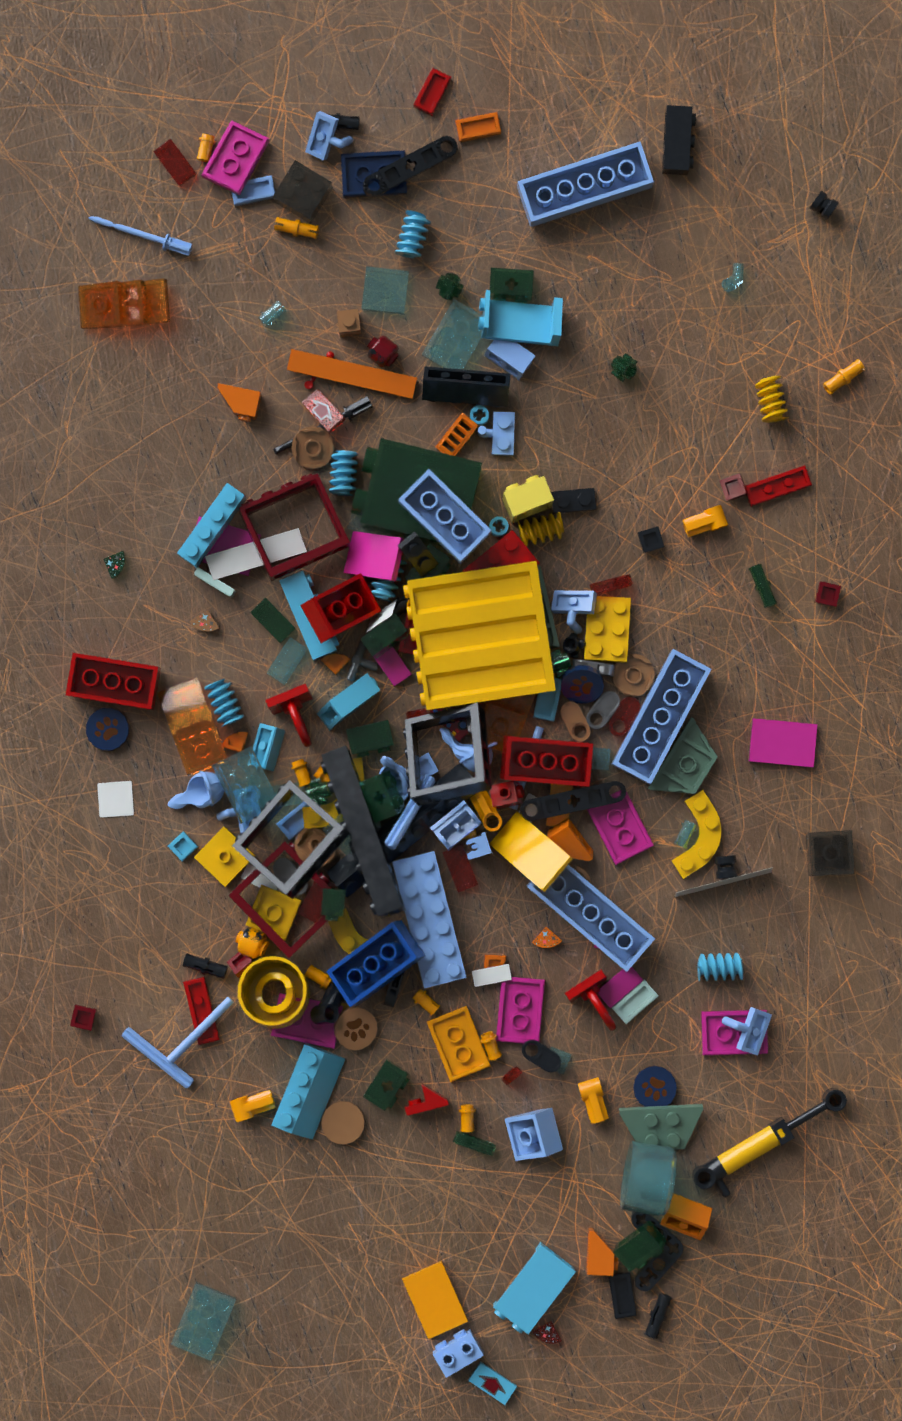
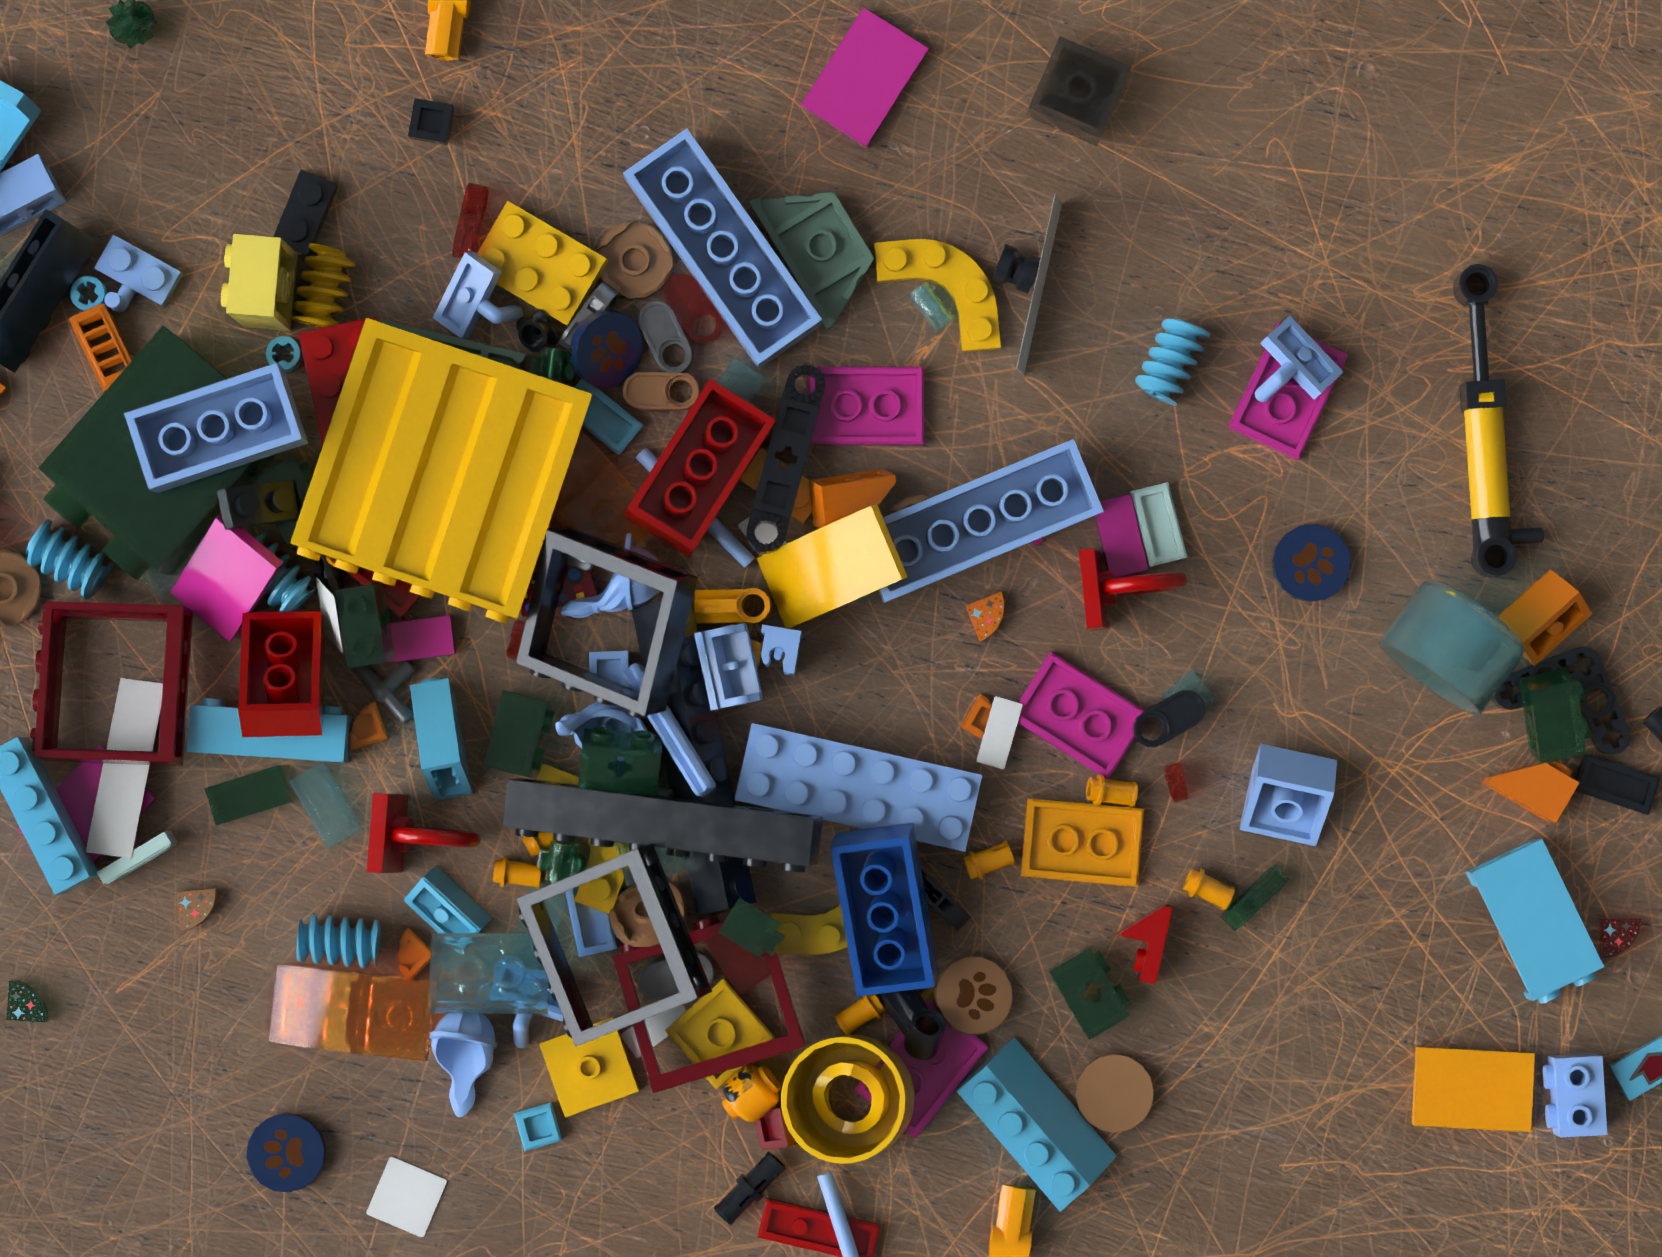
camera: 60 degrees left, 0 degrees up
(113, 681) = (211, 1104): red brick -> none
(460, 868) = (802, 696): clear red tile -> none
(507, 794) = (721, 560): red brick -> none
(592, 1096) = (1273, 669): light orange piece -> none
(662, 1125) = (1376, 581): sand green wing -> none

